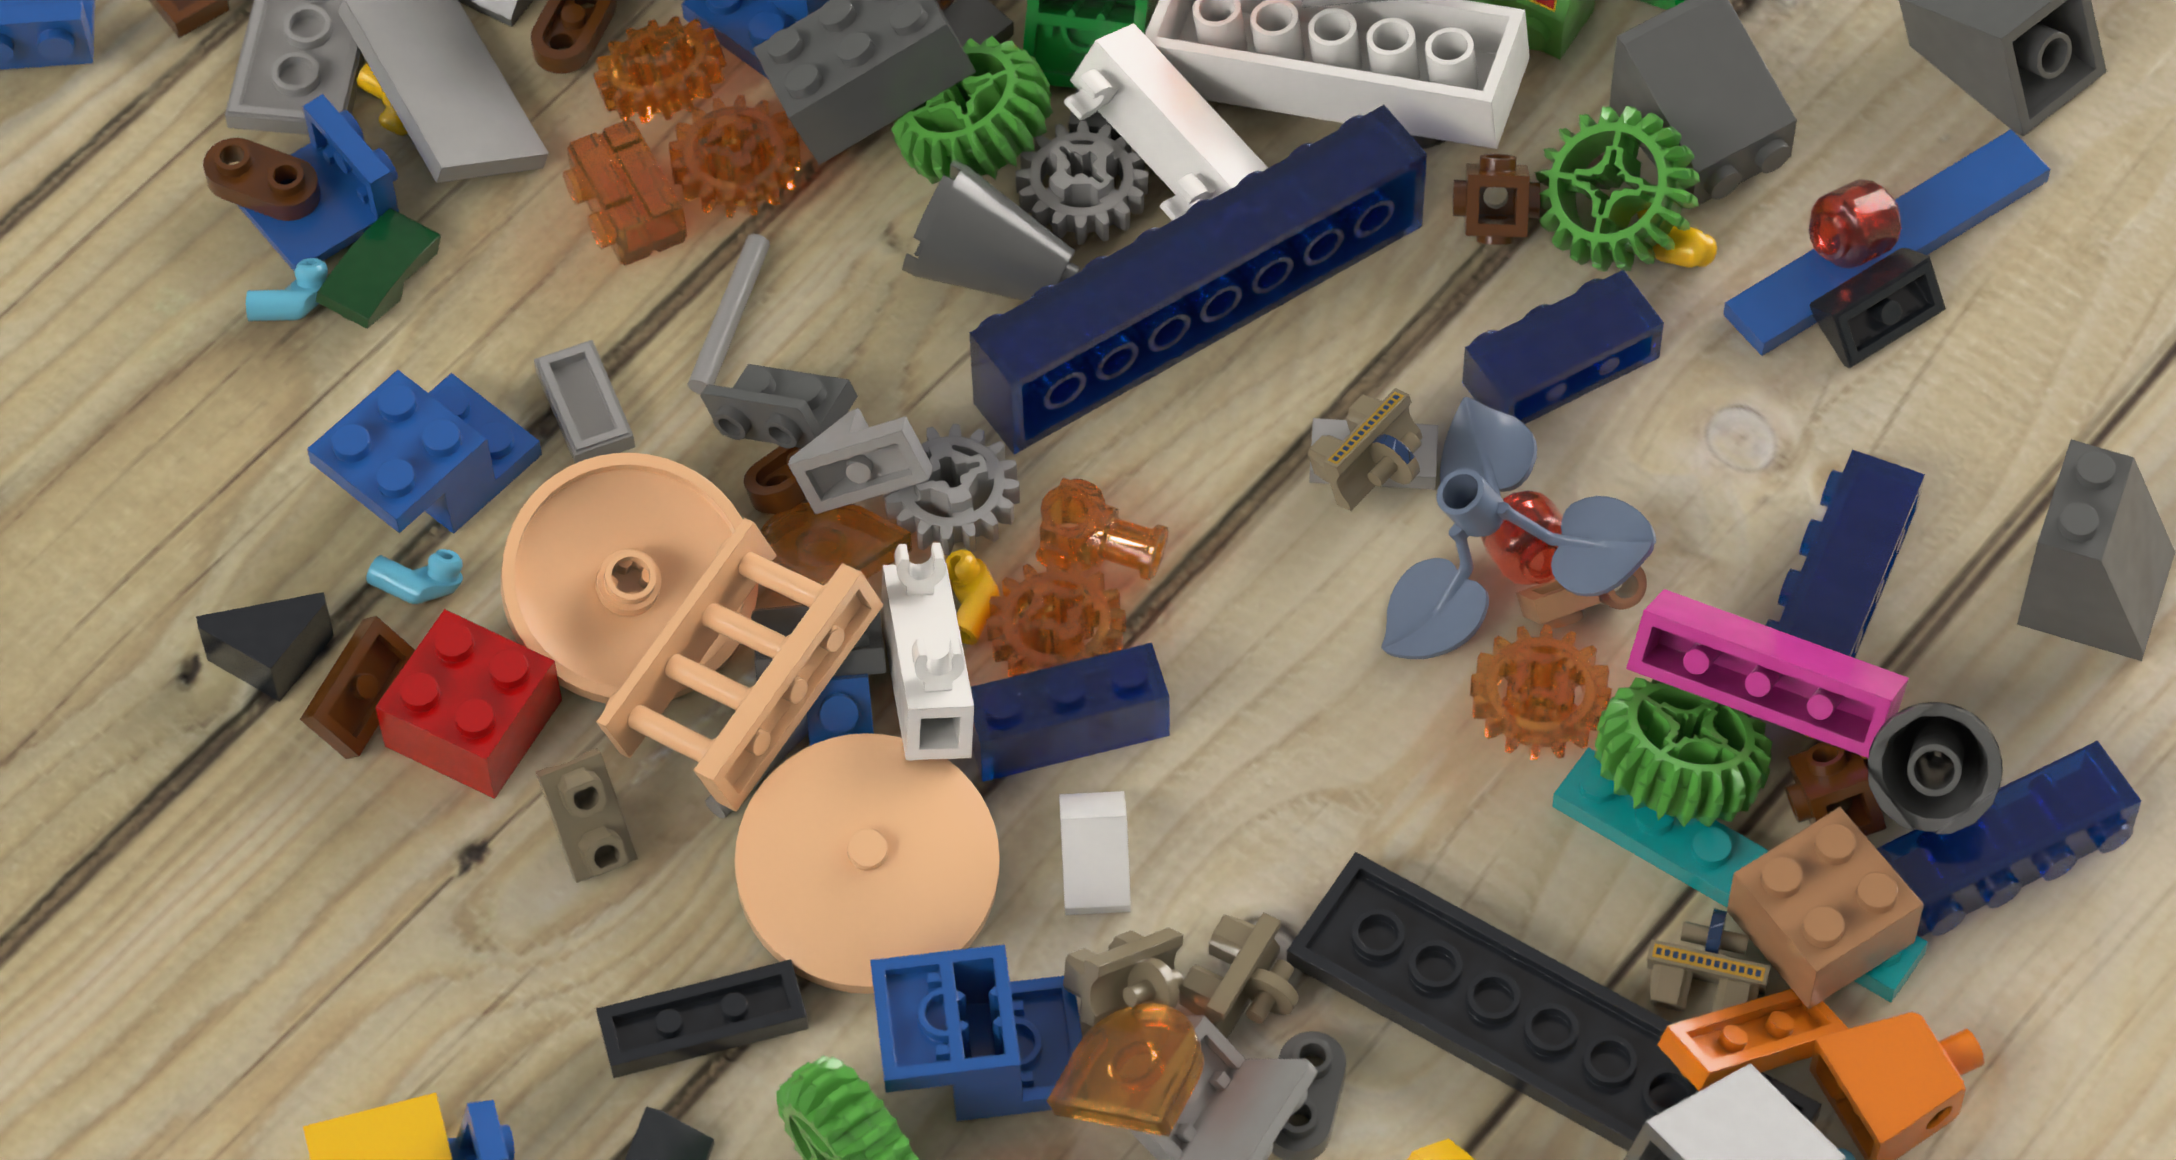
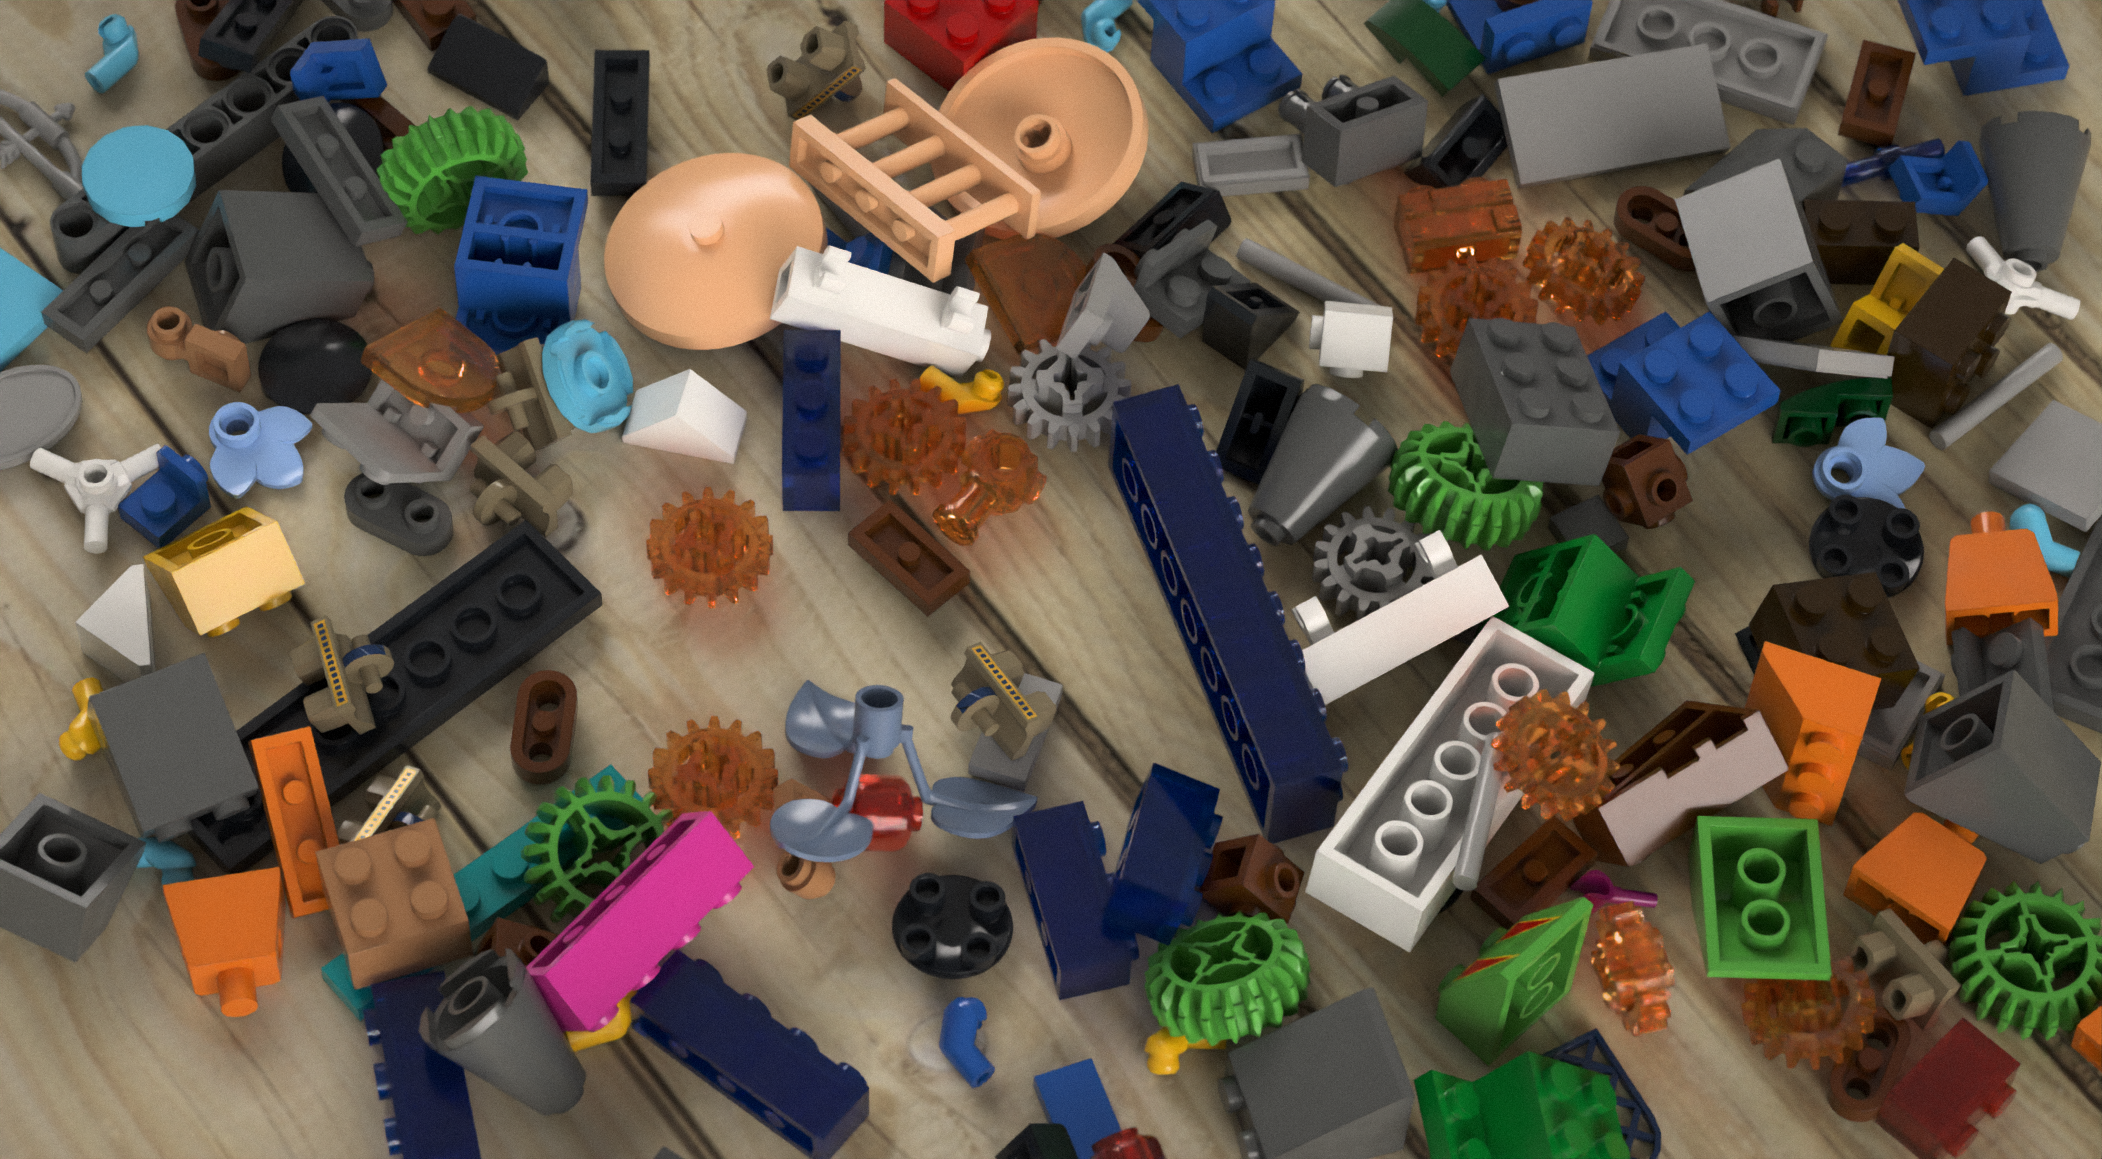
camera: 100 degrees right, 0 degrees up
(508, 222) = (1461, 147): none -> black slope
(529, 278) = (1357, 127): none -> dark grey brick
(697, 448) = (1181, 208): none -> black slope
(806, 245) = (1352, 338): none -> white brick
(807, 342) = (1244, 321): none -> black slope
(935, 309) = (1257, 420): none -> black slope
(1098, 930) = (587, 376): none -> medium azure tile
(1205, 589) = (909, 557): none -> reddish brown plate
(1258, 770) = (708, 548): none -> clear orange gear
(1504, 266) = (1164, 855): none -> clear blue brick
(1529, 864) = (544, 731): none -> reddish brown plate
(1546, 1068) = (350, 672): none -> dark tan hips
(1624, 449) = (952, 925): none -> black dish
(1742, 417) = (958, 1036): none -> blue arm

